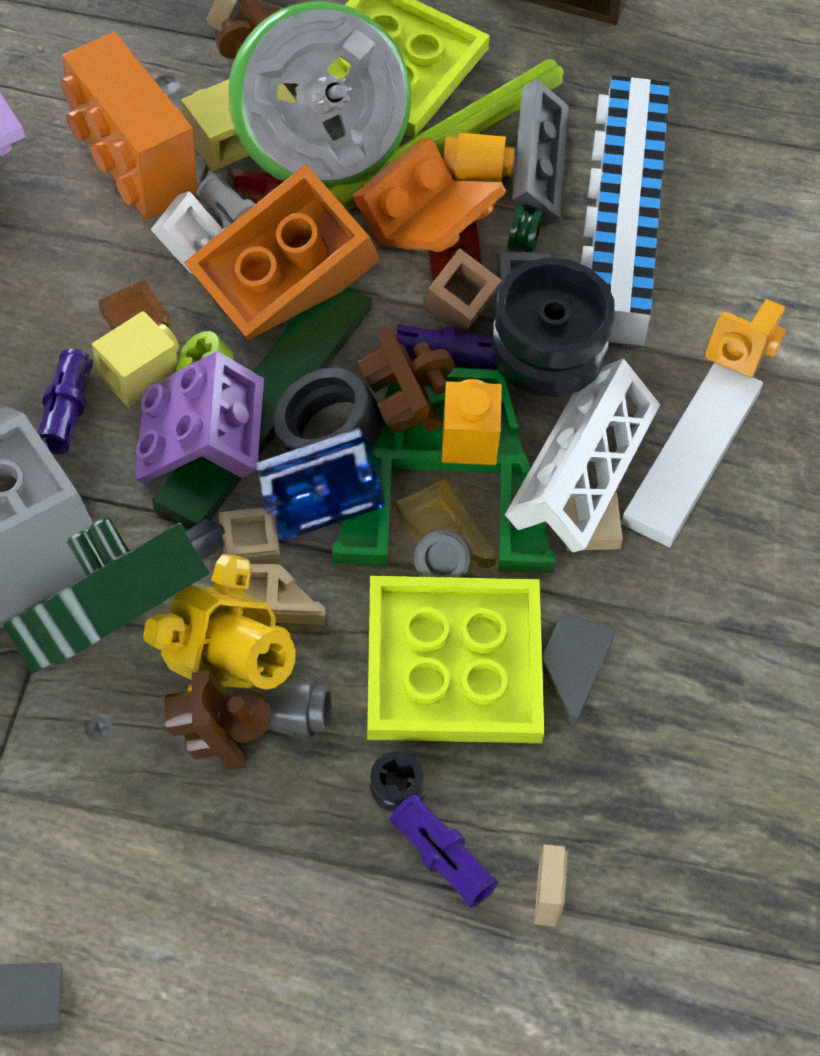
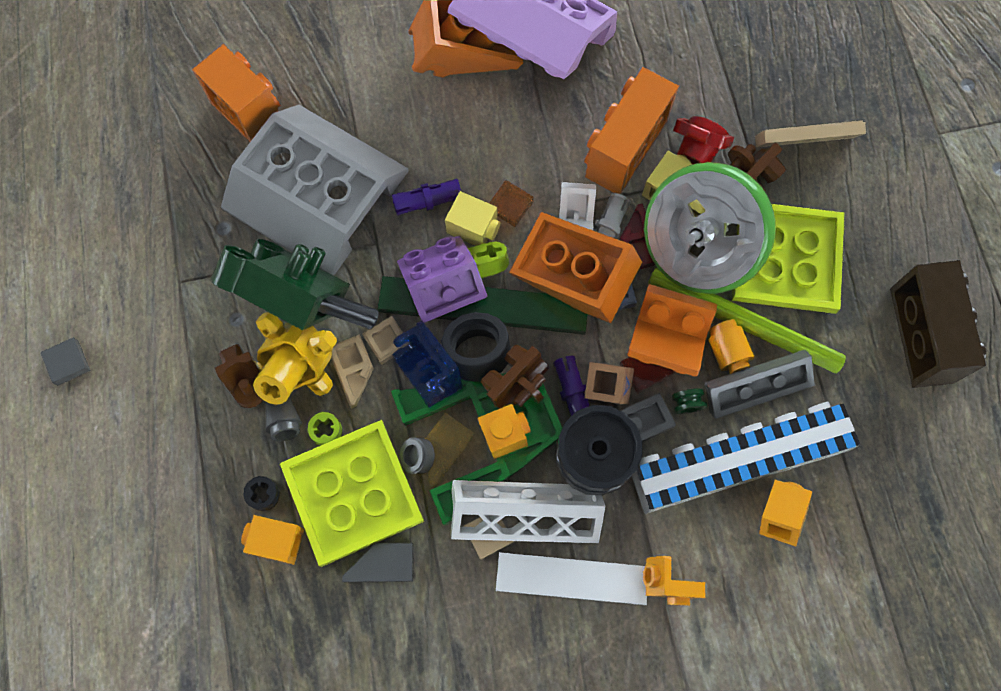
camera: 70 degrees right, 15 degrees up
(184, 63) = (701, 139): none -> red piece
(348, 646) = (325, 418): none -> lime bush
(420, 823) = (225, 539): dark purple pin -> none
(476, 782) = (272, 539): none -> light orange brick
(551, 885) = (224, 610): tan tile -> none
(716, 190) = (785, 512): none -> light orange brick

